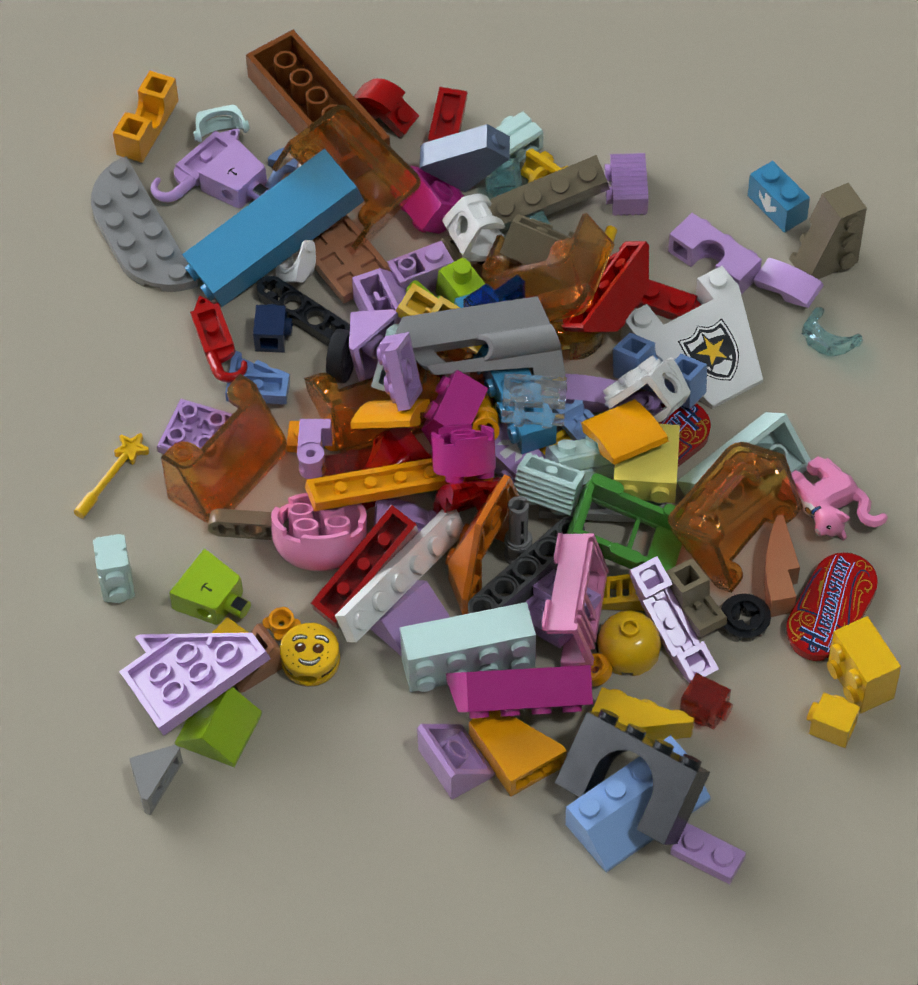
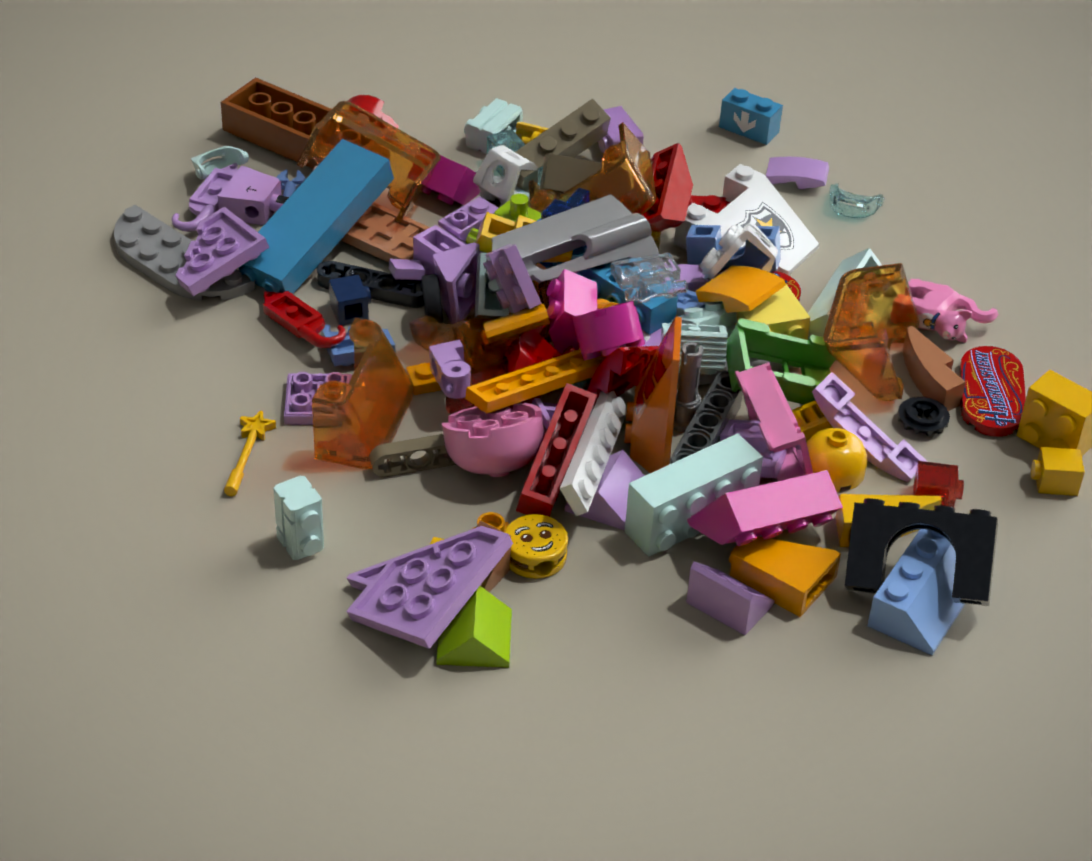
camera: 25 degrees left, 15 degrees down
(138, 132) = (143, 172): light orange arch -> none
(154, 774) = (429, 692): light grey slope -> none
(168, 245) = (220, 248): none -> lavender plate
(209, 591) = (404, 518): lime torso -> none
(303, 266) = (358, 243): white helmet -> none
(337, 307) = (406, 269): none -> lavender tile
(448, 113) = (428, 118): red plate -> none
(465, 156) = (468, 131): sand blue slope -> none
(693, 594) = (872, 402): dark tan brick -> none
(699, 239) = (711, 158): lavender arch -> none
(708, 853) = (1019, 611): lavender plate -> none
(834, 235) = (823, 118): dark tan wedge -> none

